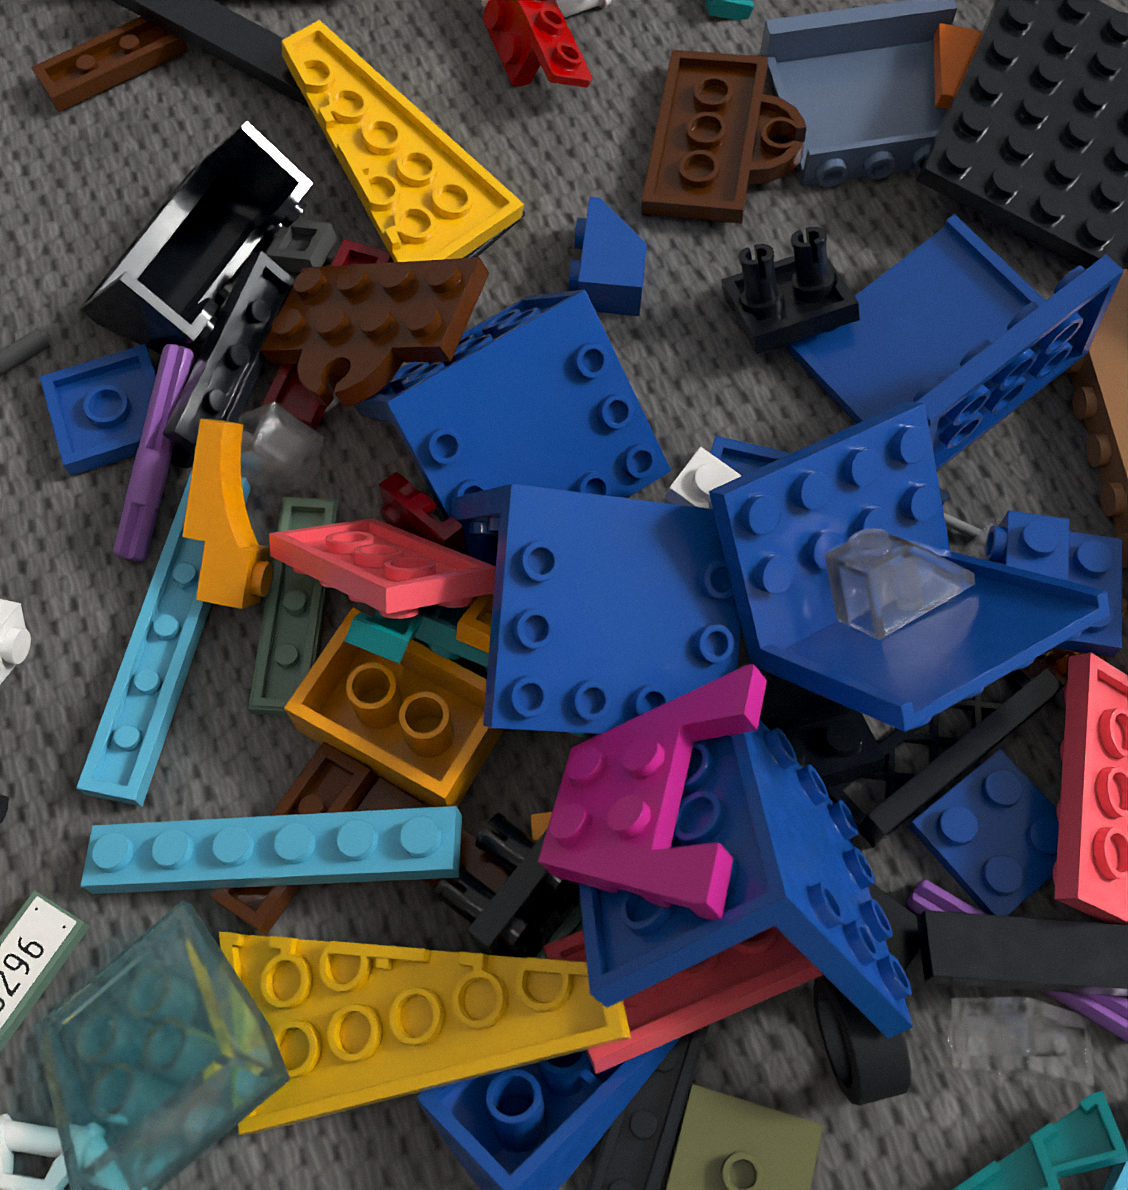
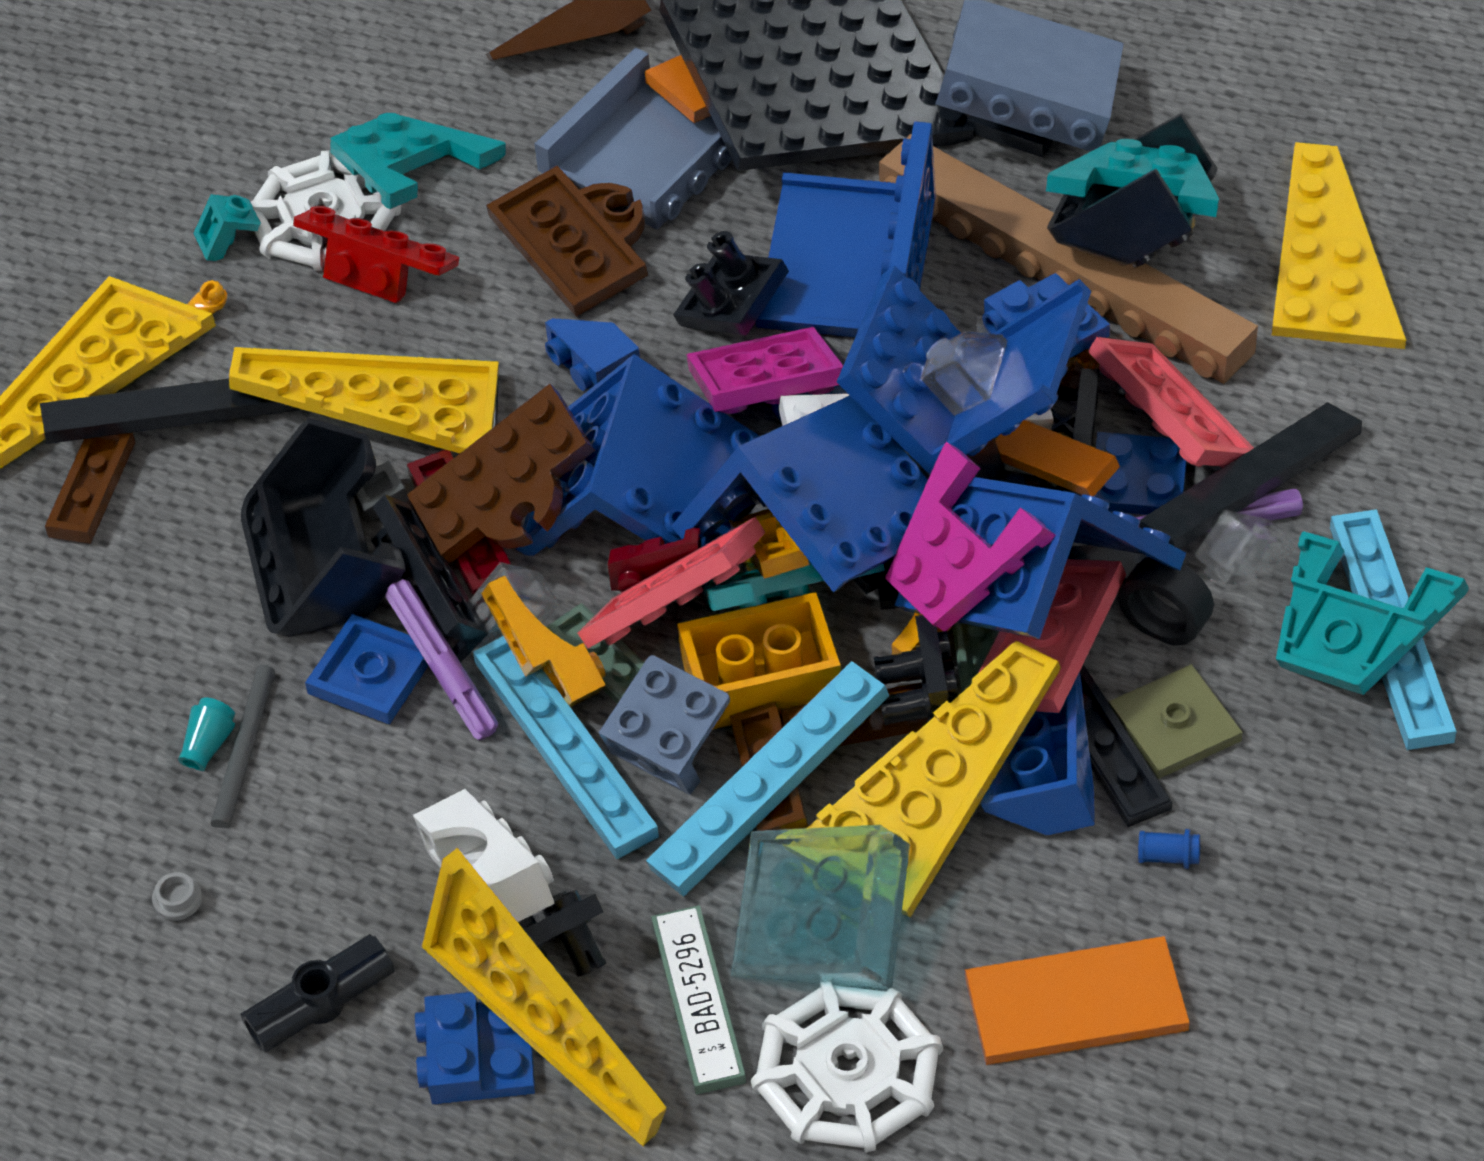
camera: 40 degrees left, 15 degrees down
(237, 701) = (664, 722): none -> sand blue bracket
(728, 402) = (765, 370): none -> dark pink plate
(917, 780) = (1057, 458): none -> orange tile

